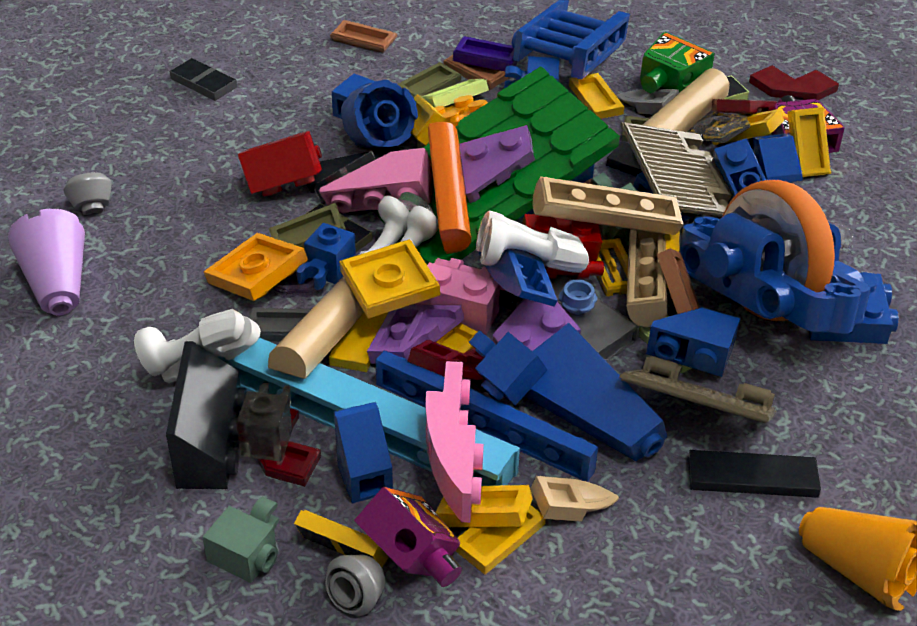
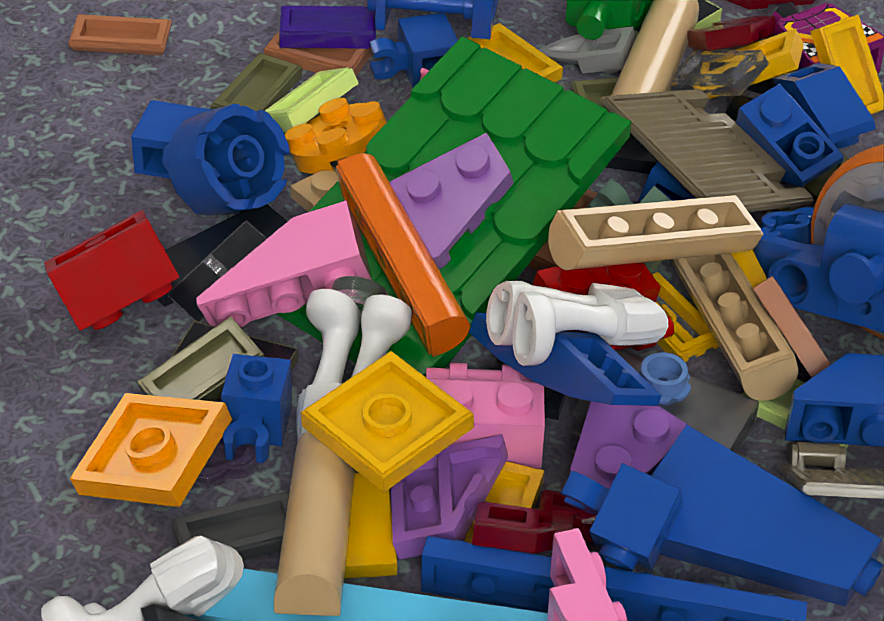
camera: 20 degrees left, 0 degrees up
(426, 115) = (305, 157): yellow tile -> none

